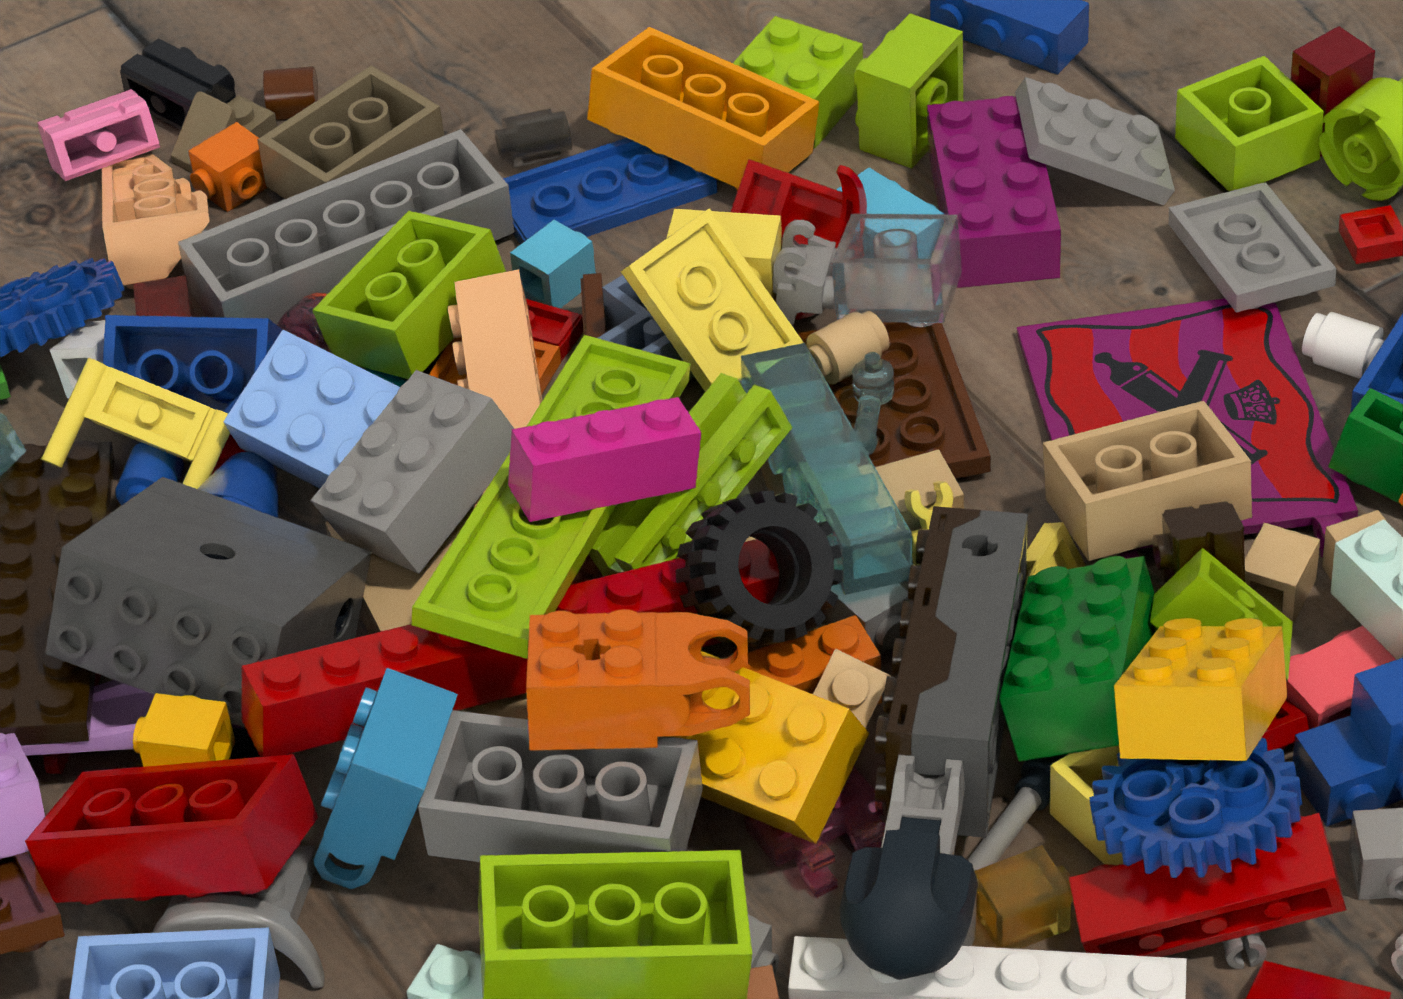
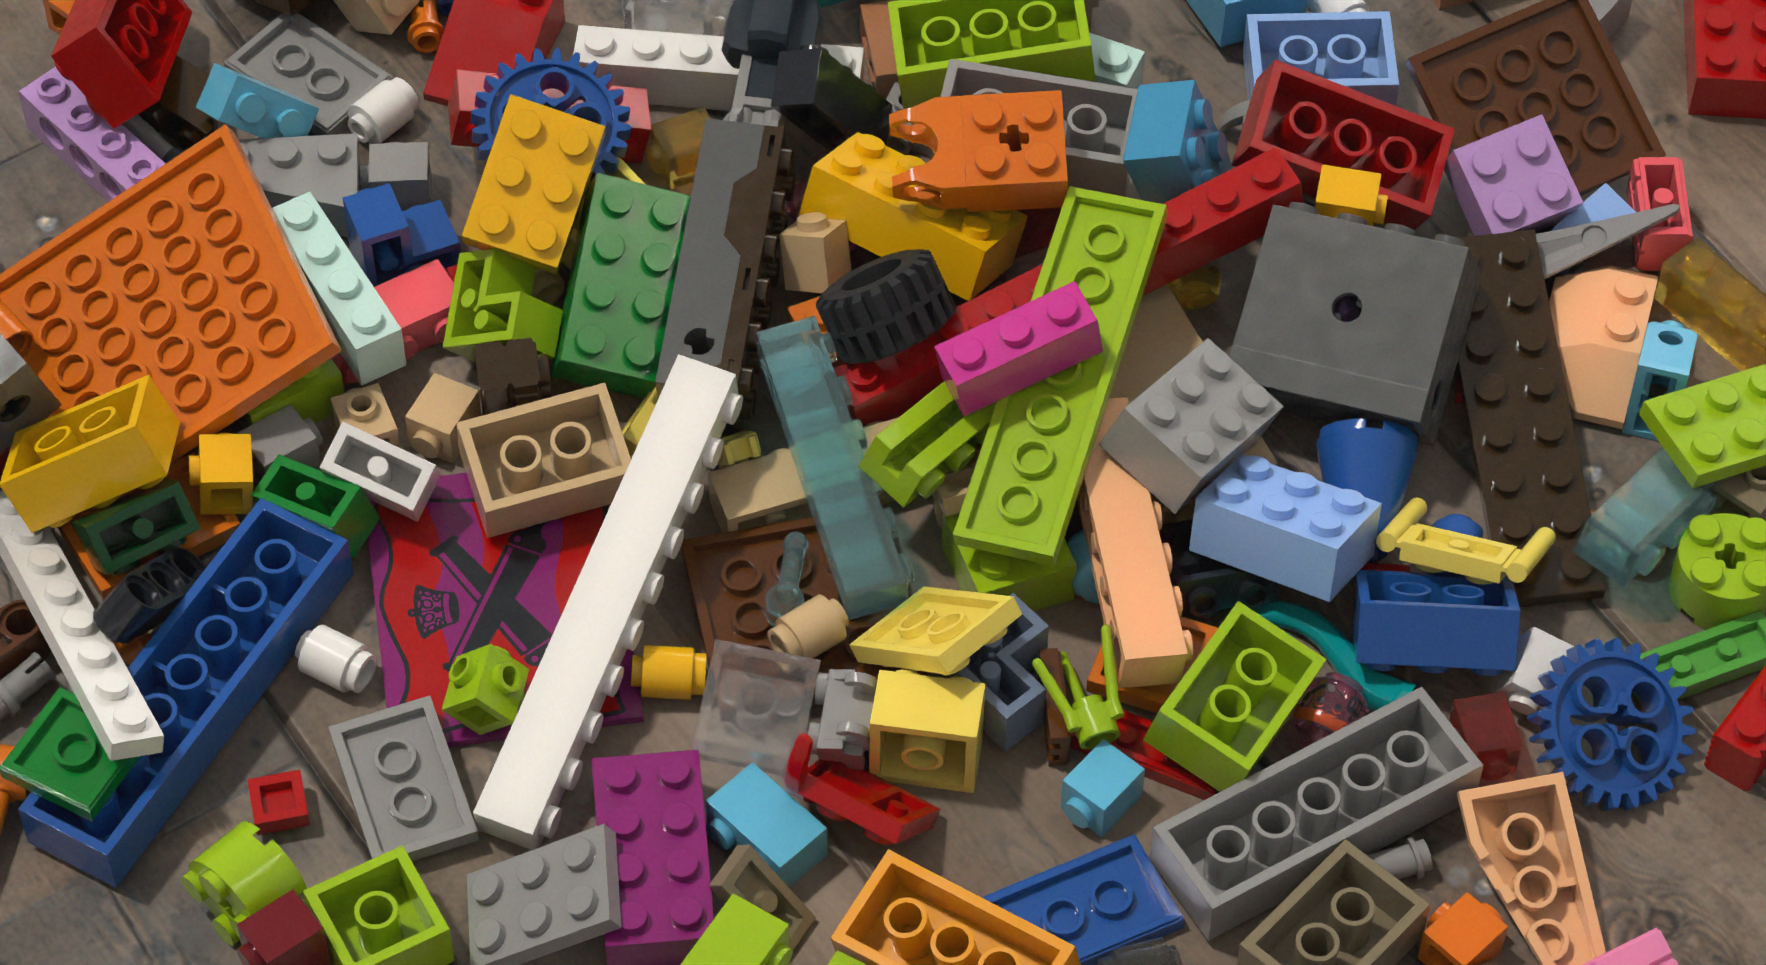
camera: 175 degrees right, 10 degrees up
(557, 288) = (1089, 715): none -> lime plant
(813, 867) = (827, 98): none -> black brick
(900, 158) = (756, 882): none -> dark tan slope
(992, 346) = (669, 672): none -> yellow brick
(1049, 352) = (607, 605): none -> white brick
(1179, 298) = (485, 689): none -> lime brick
(1332, 462) = (381, 470): none -> white brick

